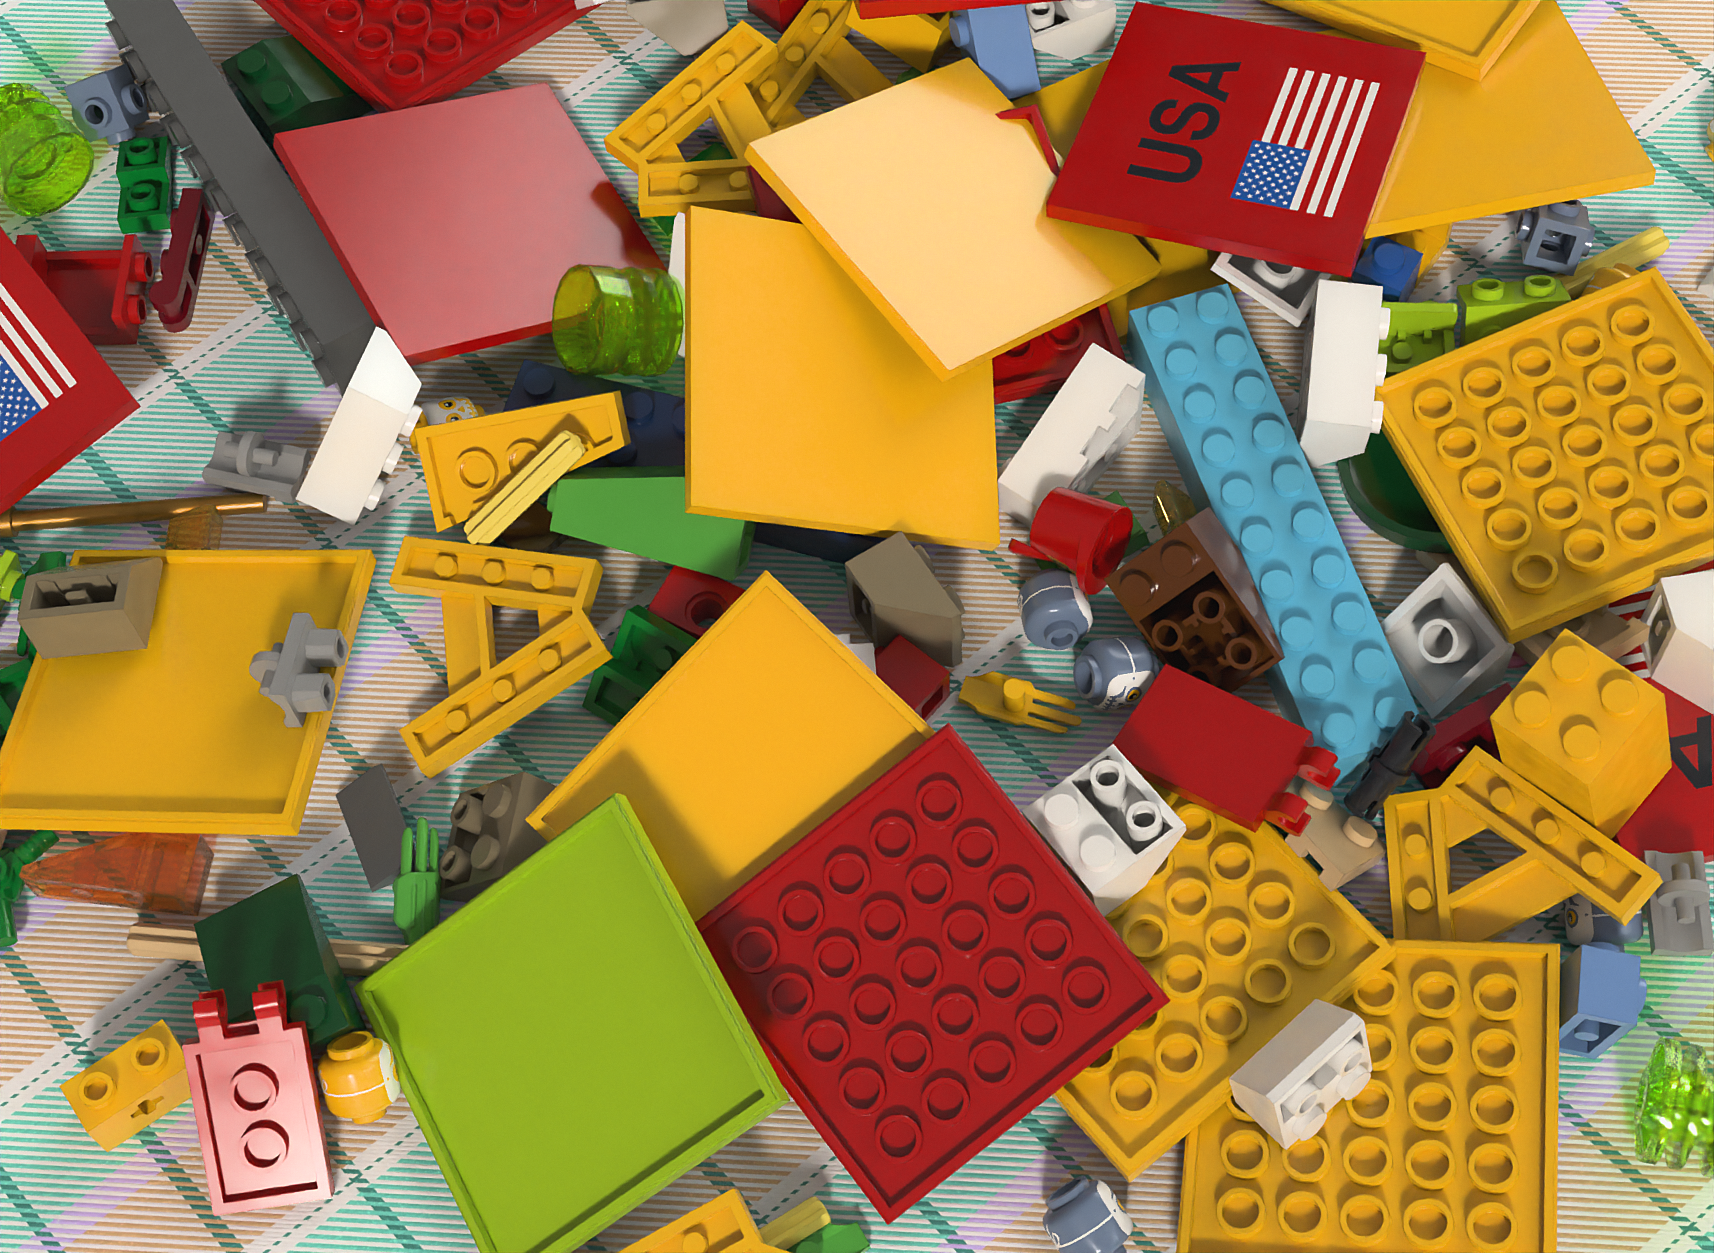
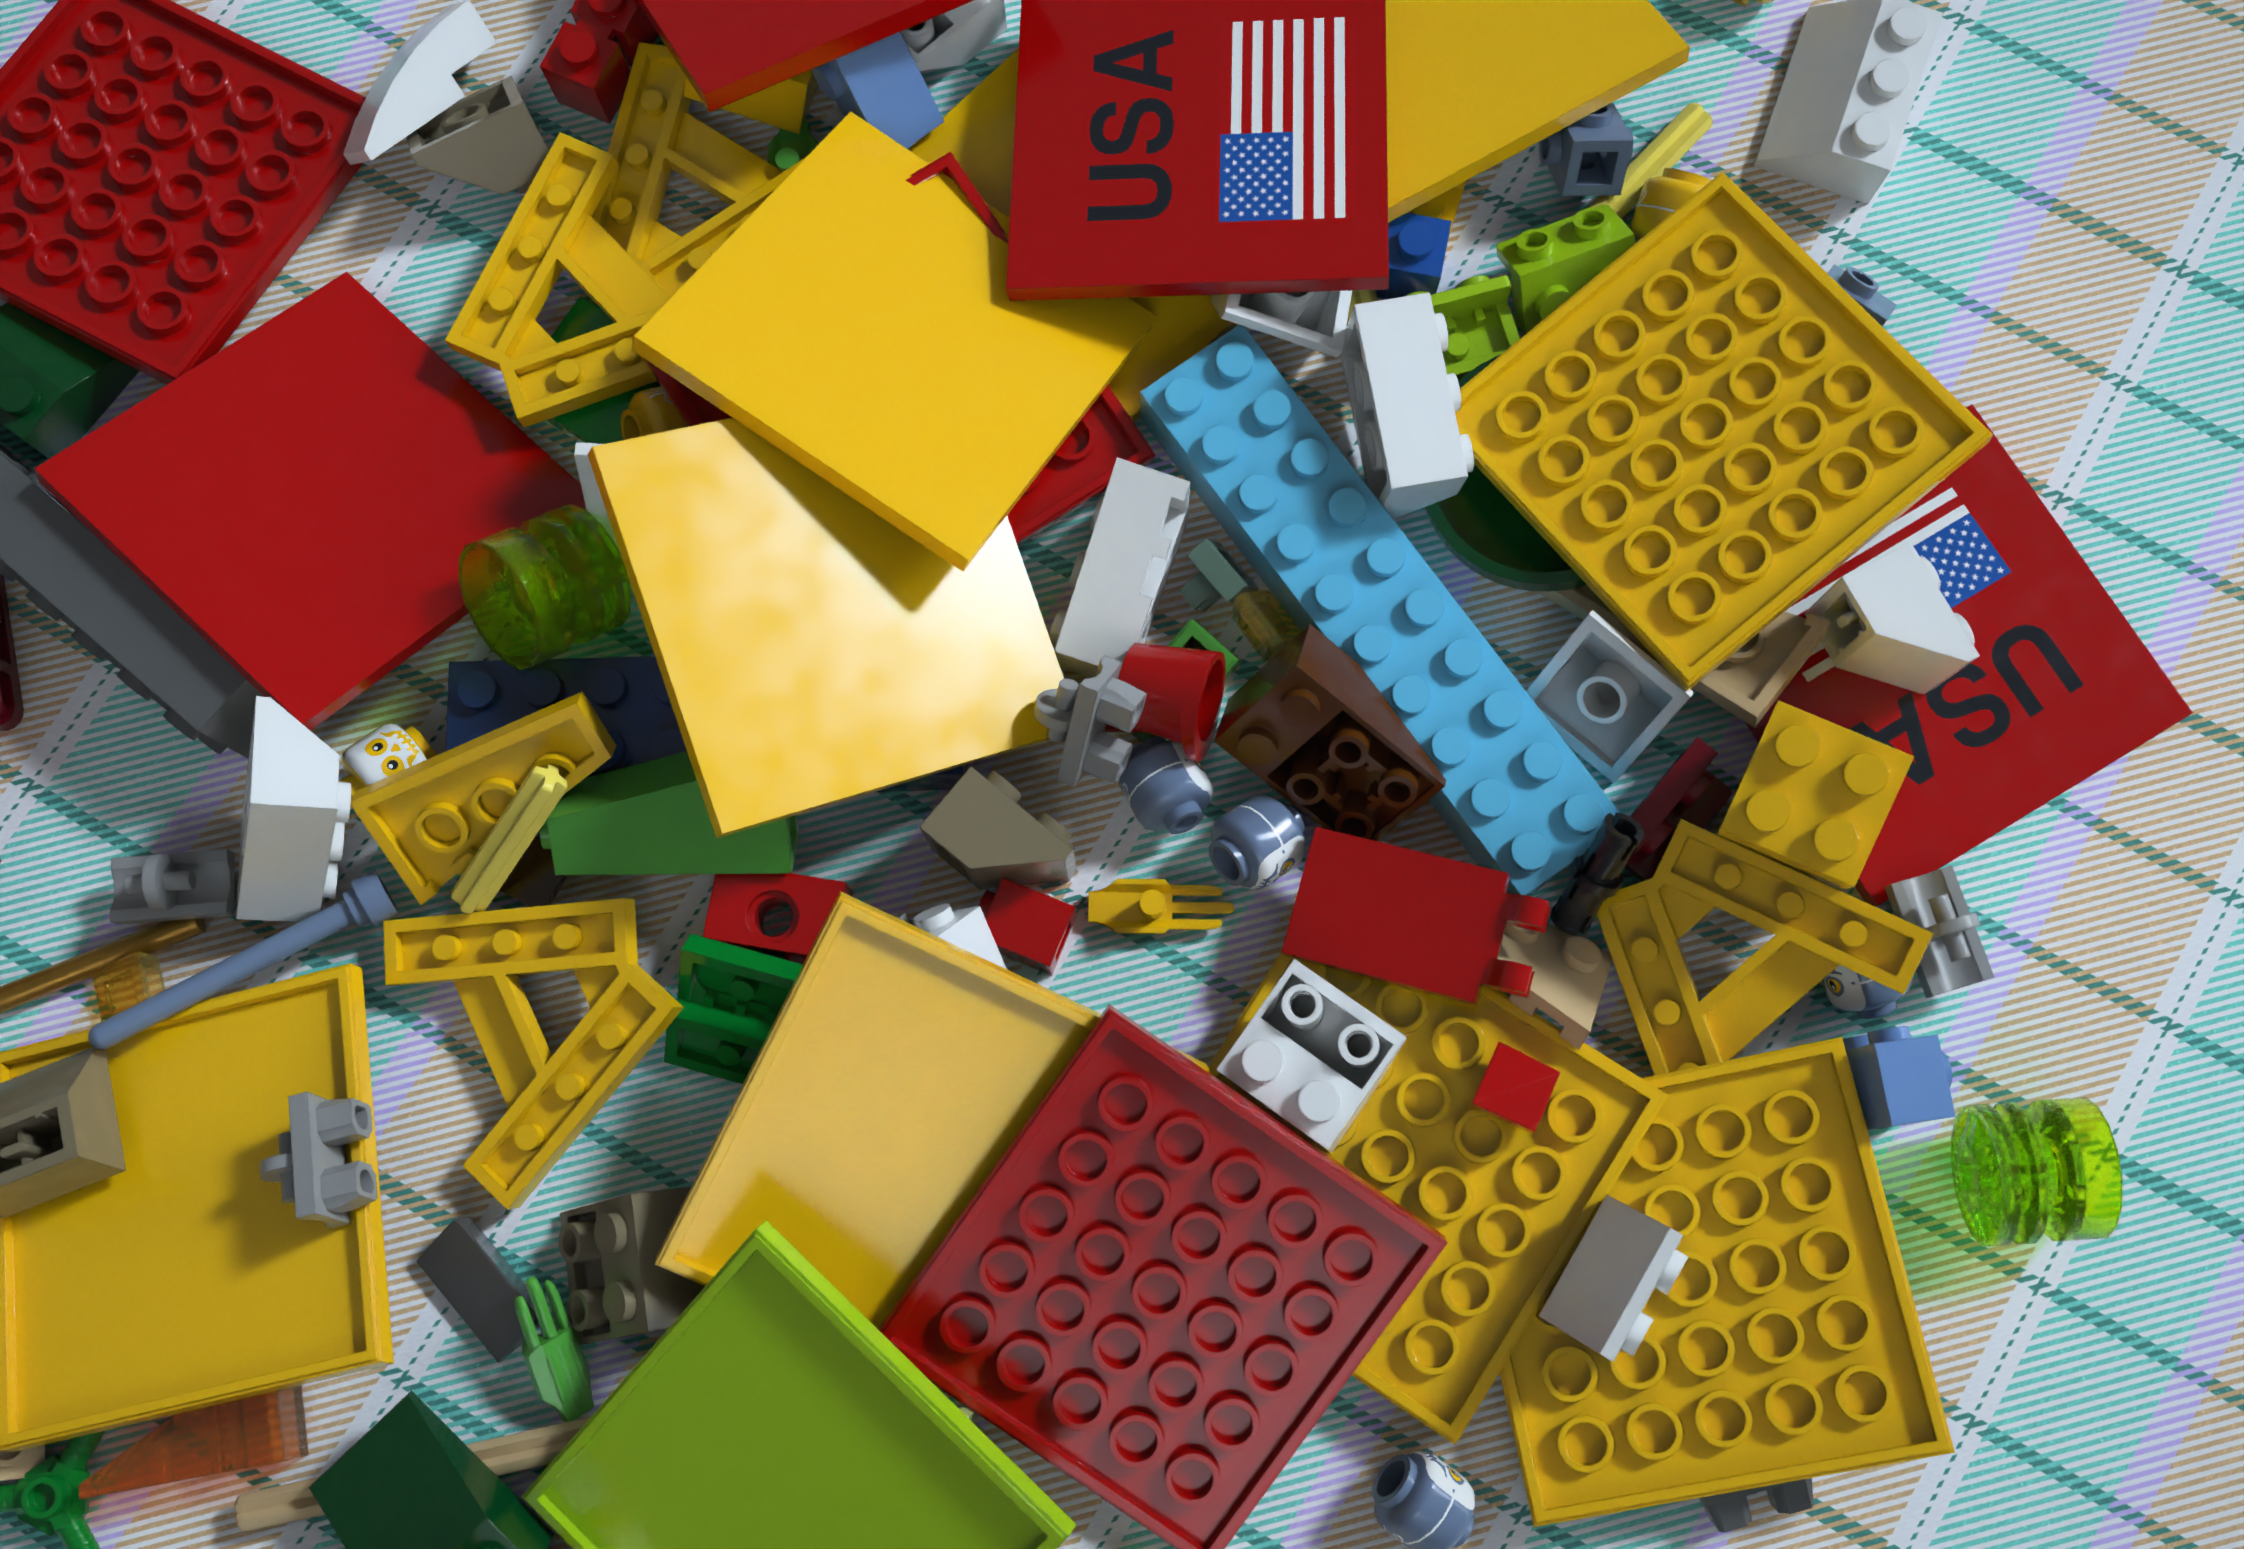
camera: 20 degrees left, 15 degrees up
(394, 520) = (362, 904): none -> sand blue piece
(1002, 528) = (1085, 717): none -> light grey hips
(1142, 473) = (1218, 577): none -> sand green tile
(1265, 902) = (1515, 1088): none -> red slope

